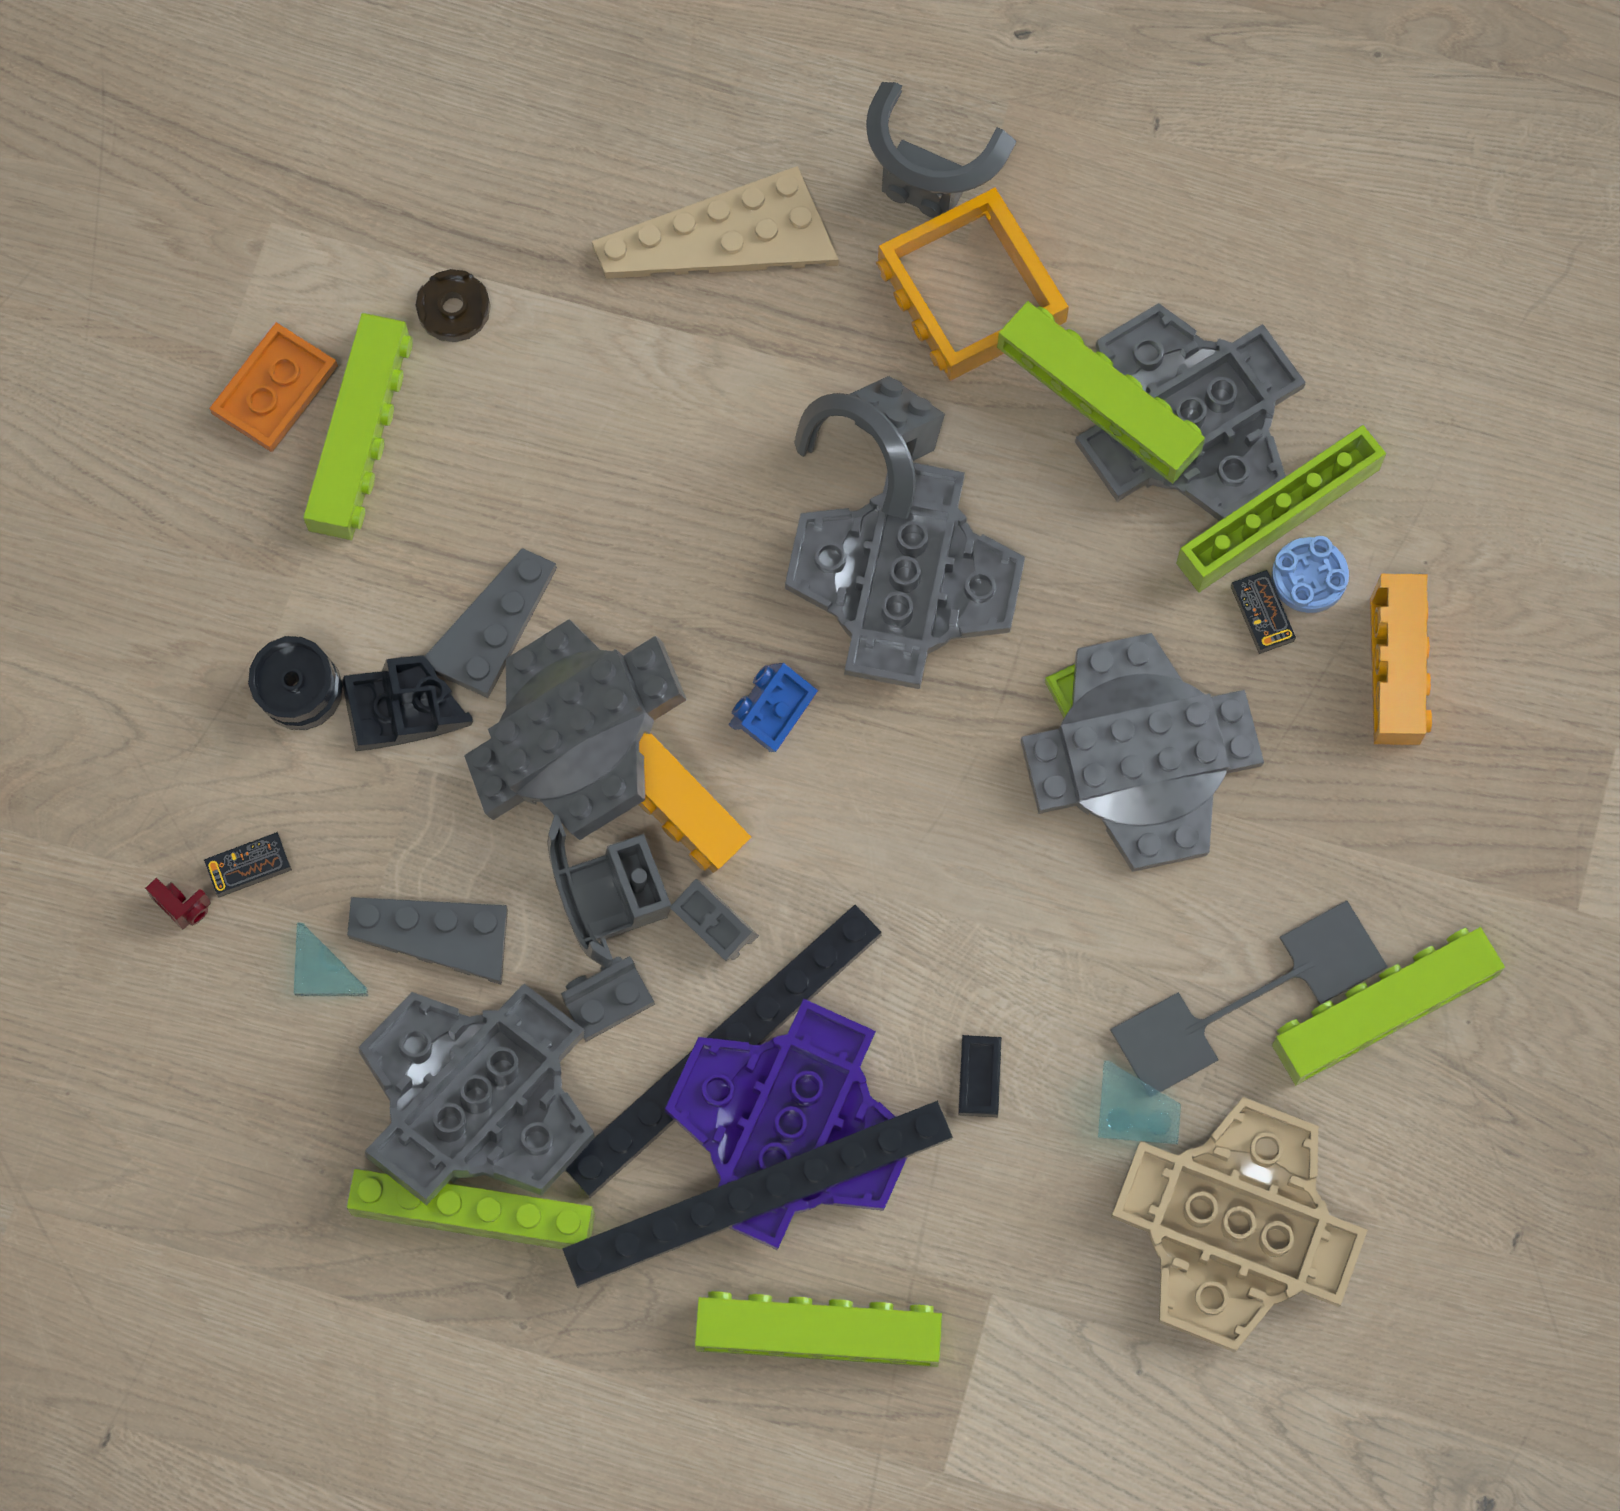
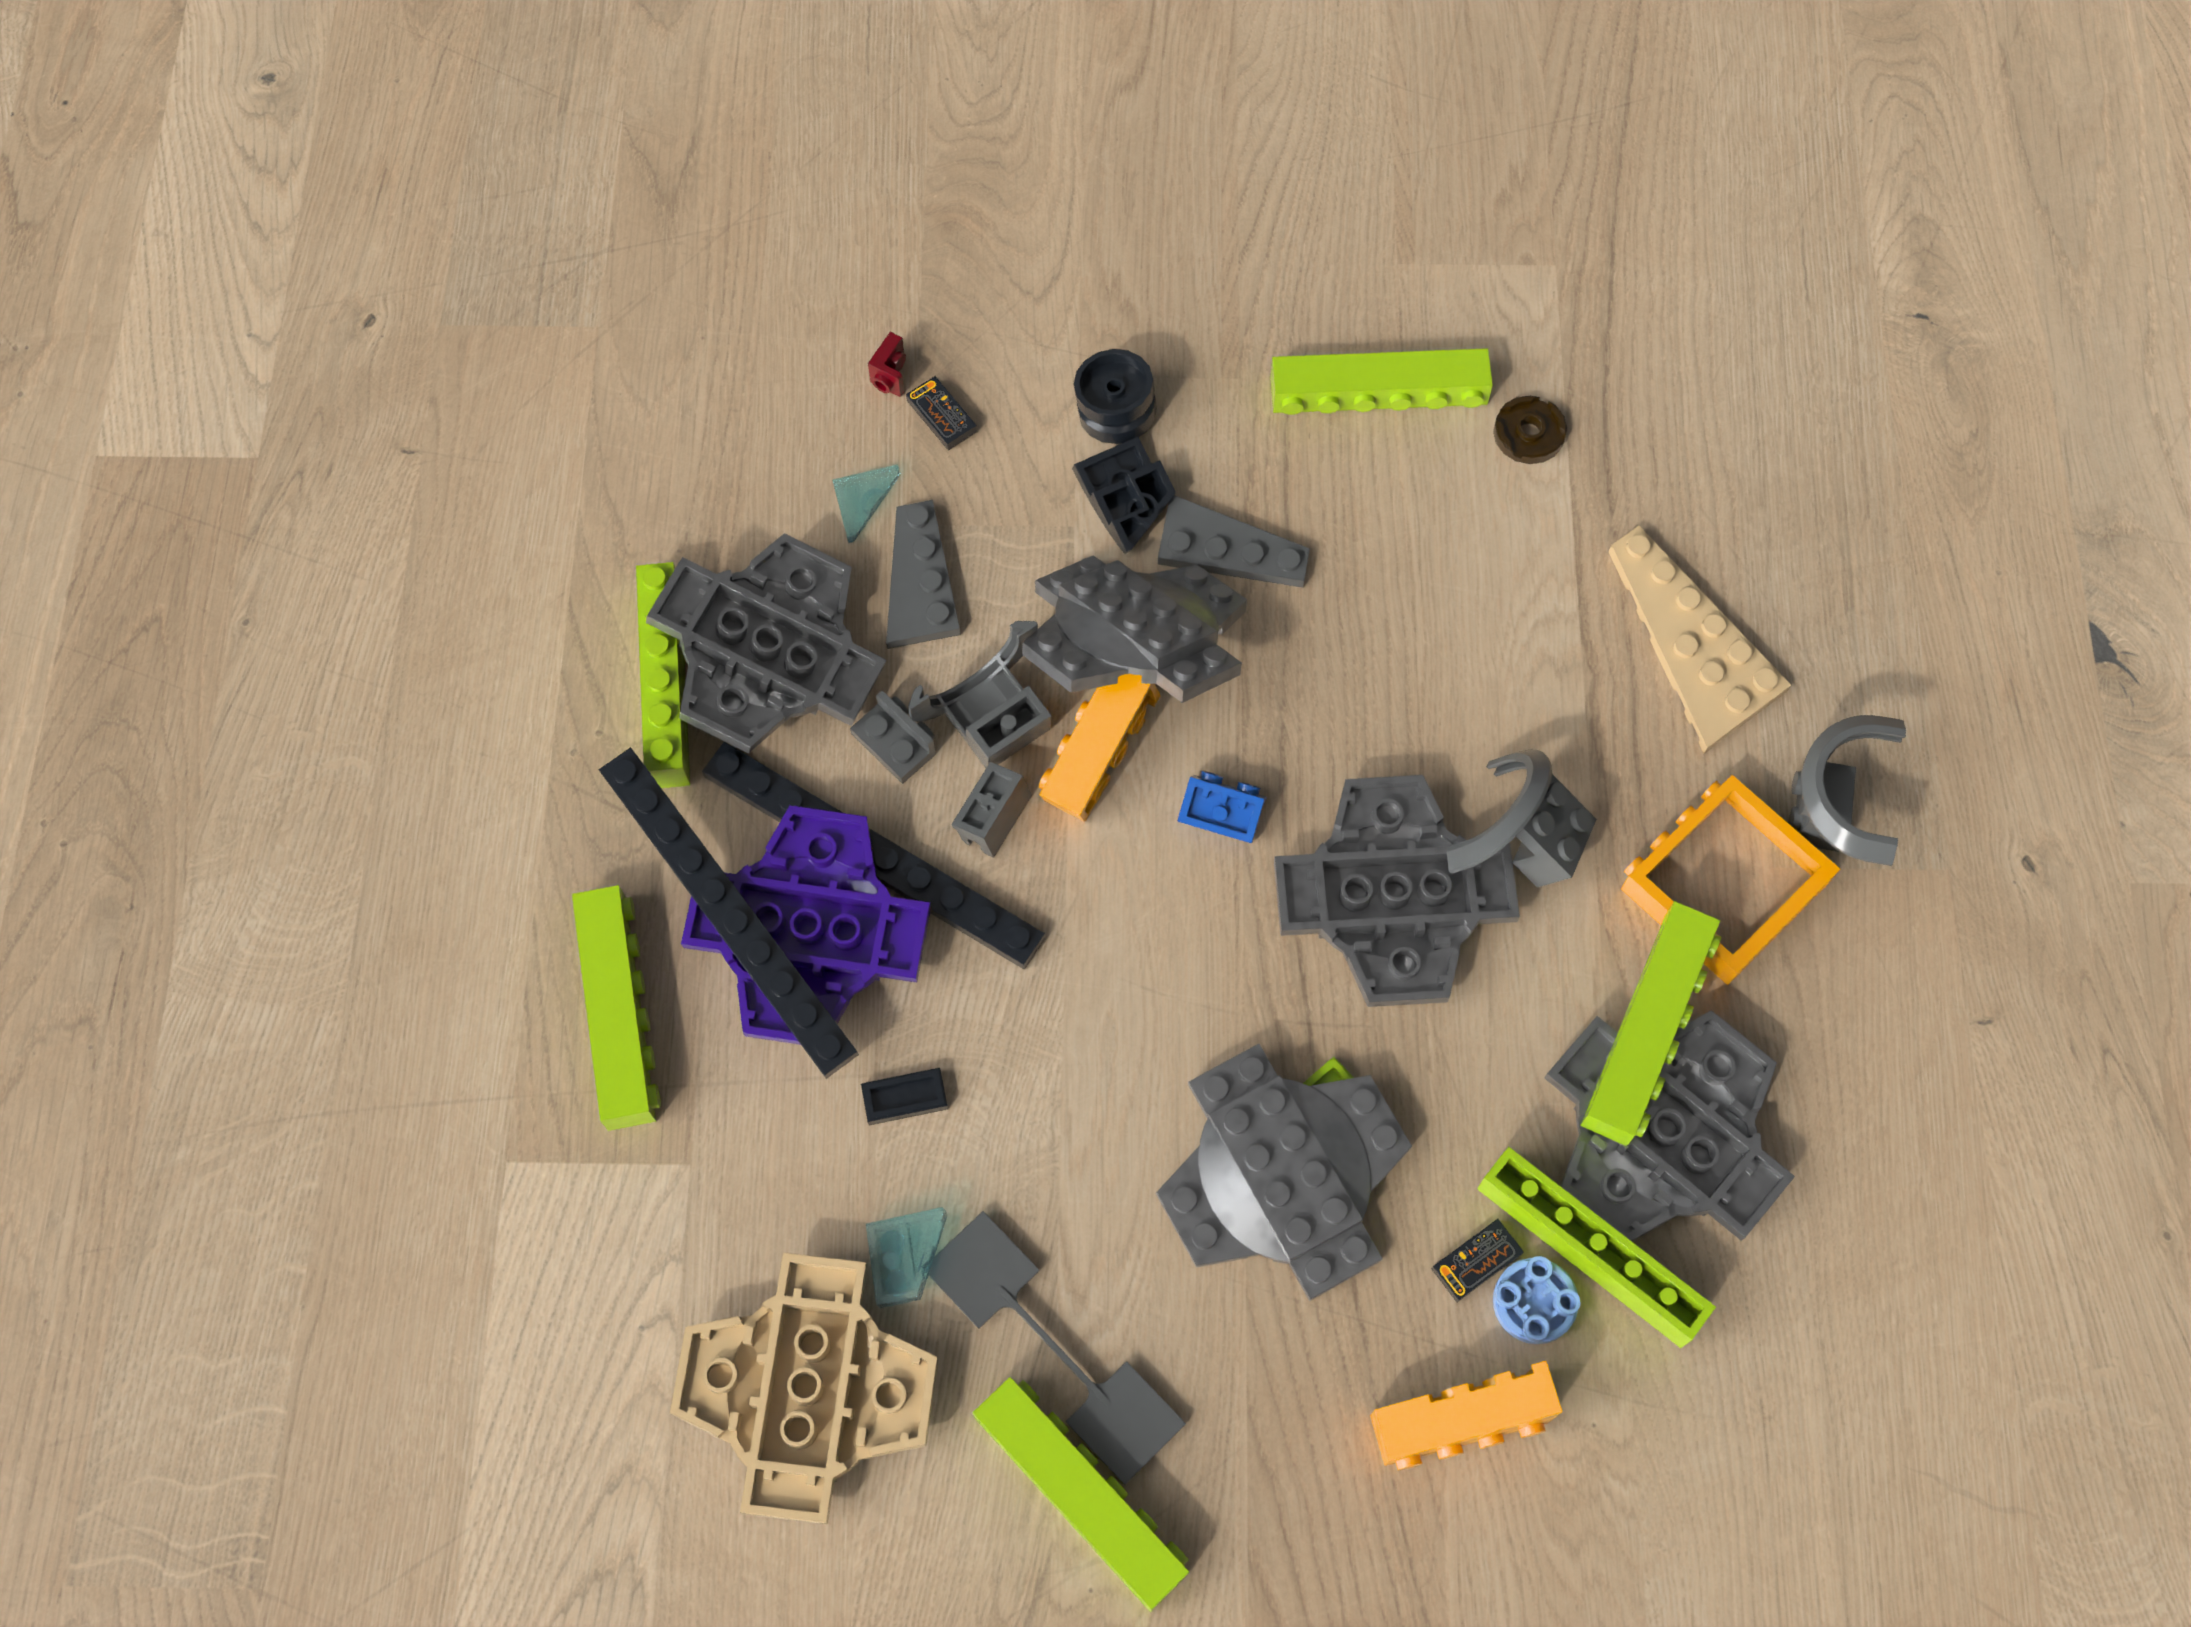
camera: 75 degrees right, 5 degrees down
(273, 387) = (1394, 306): orange plate -> none

